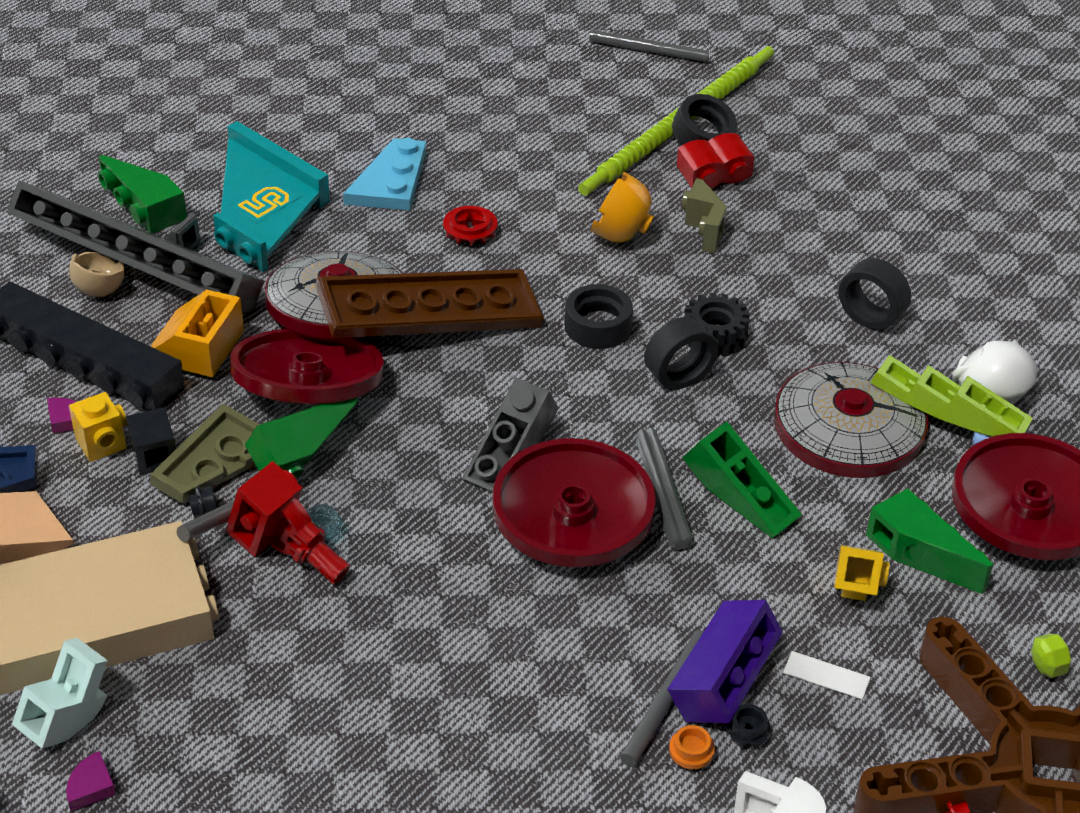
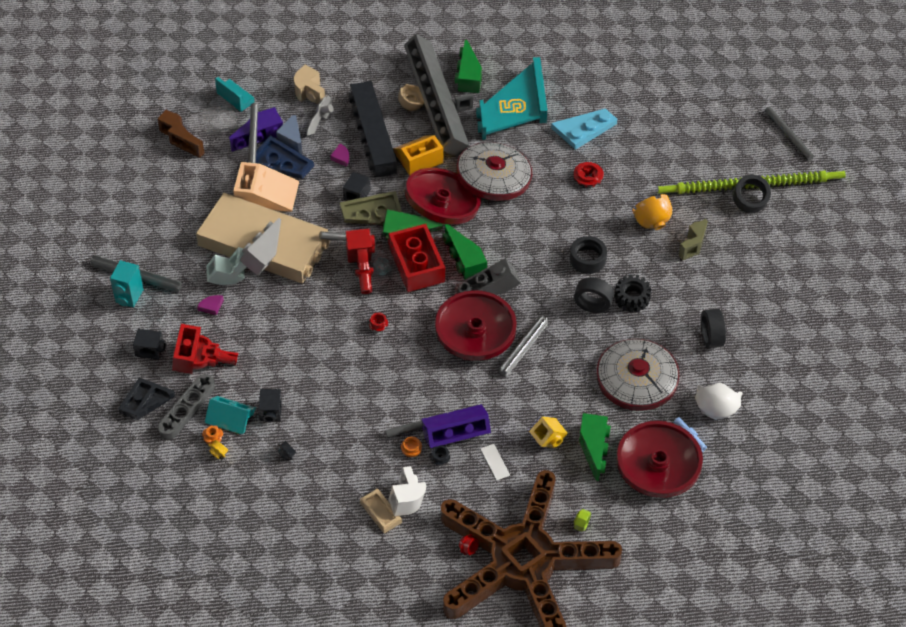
camera: 45 degrees right, 10 degrees up
(98, 426) = (342, 168): yellow brick -> none
(116, 613) = (263, 250): none -> light grey slope
(202, 501) = (349, 225): black plate -> none
(370, 470) = (416, 257): none -> red brick
(414, 604) = (378, 318): none -> red plate
(428, 302) = (521, 201): reddish brown tile -> none
(431, 420) = (467, 254): none -> green slope
(716, 160) = (734, 216): red brick -> none
(740, 480) = (552, 366): green slope -> none
(964, 405) = (681, 397): lime slope -> none

